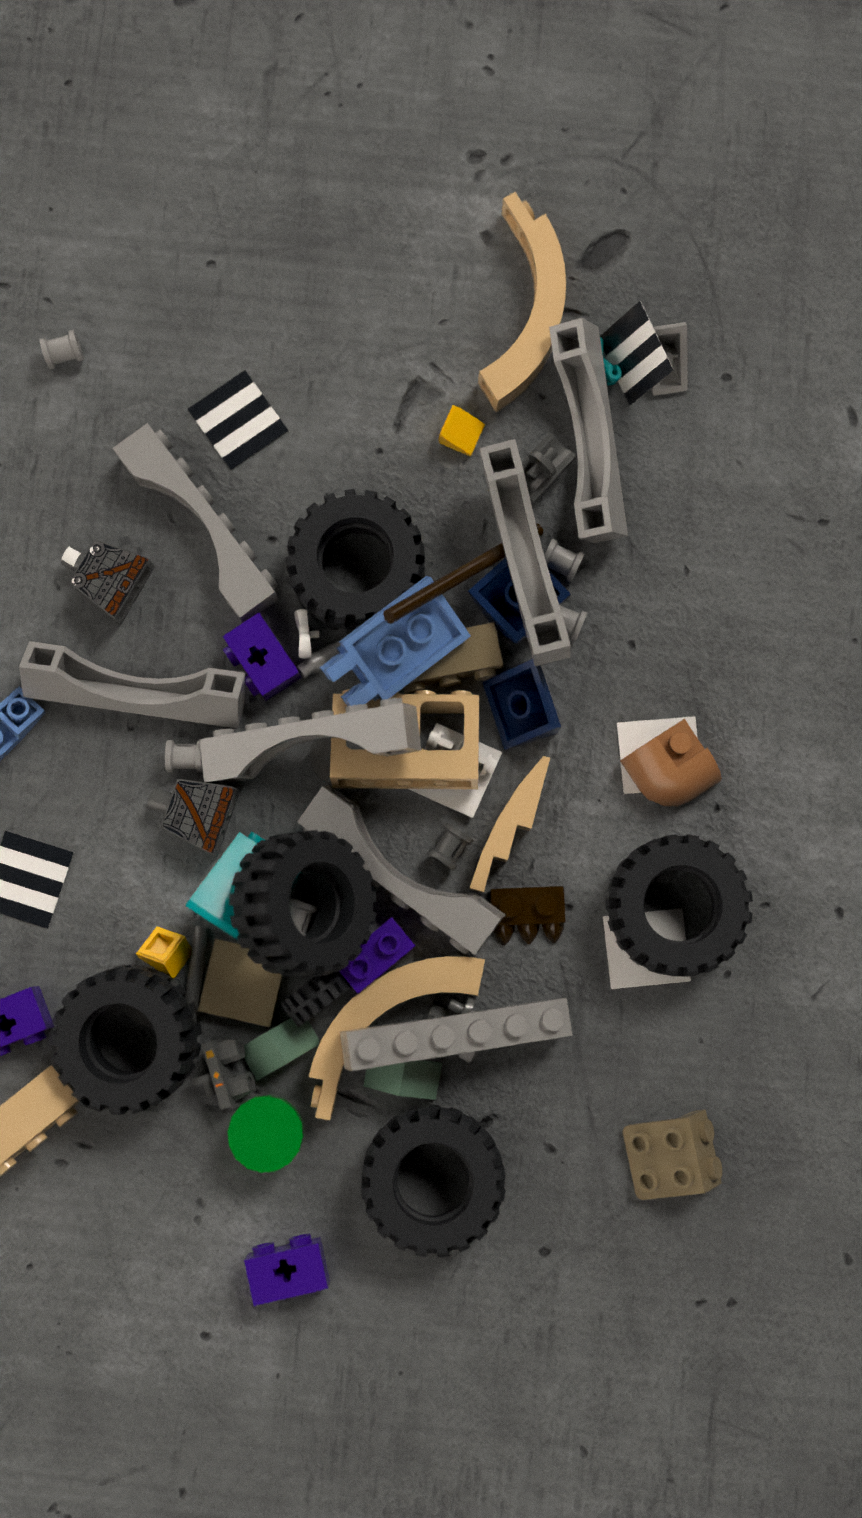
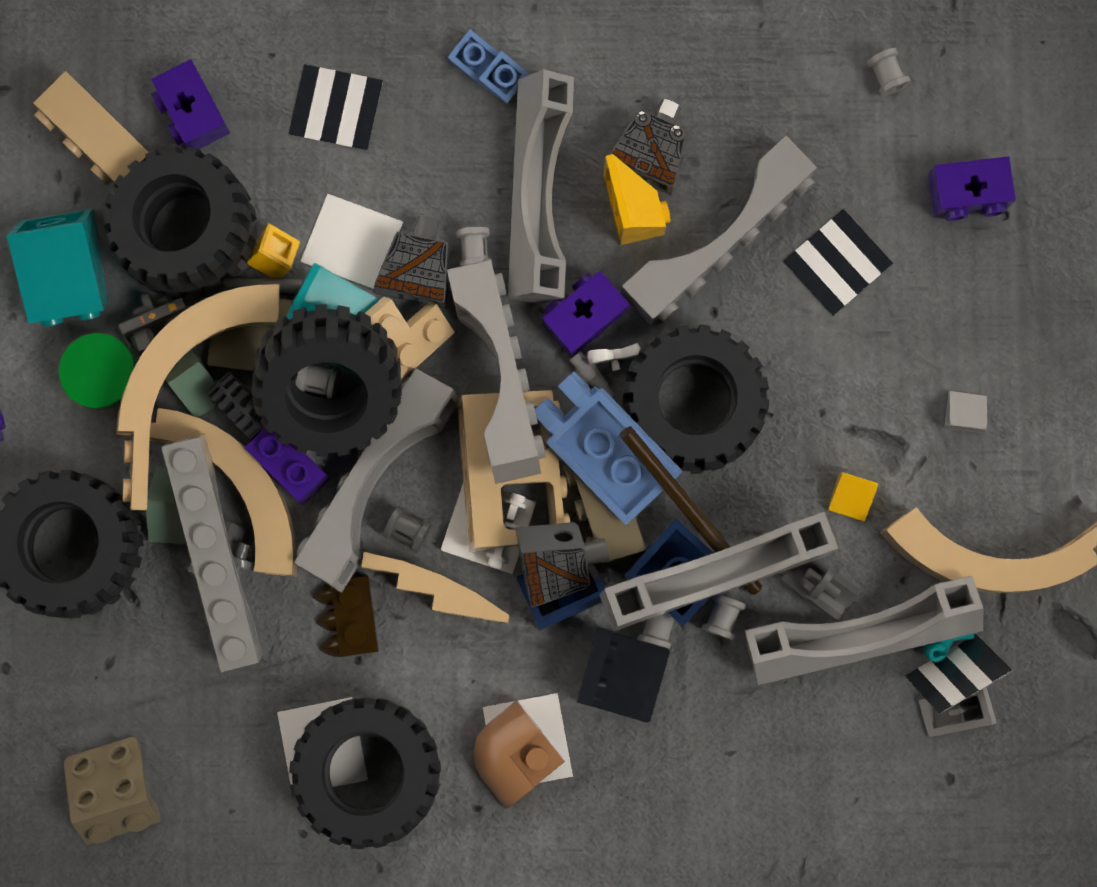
camera: 85 degrees right, 0 degrees up
(154, 1166) = (59, 267): none -> teal slope
(159, 600) = (633, 203): none -> yellow slope
(162, 876) = (350, 240): none -> white sticker
(176, 269) = (989, 176): none -> dark purple brick
(261, 1067) = (219, 313): none -> tan arch
(264, 817) = (413, 338): none -> tan plate
(393, 319) = (966, 412): none -> light grey slope
(497, 704) = (556, 560): none -> torso
(607, 659) = (623, 675): none -> black bracket

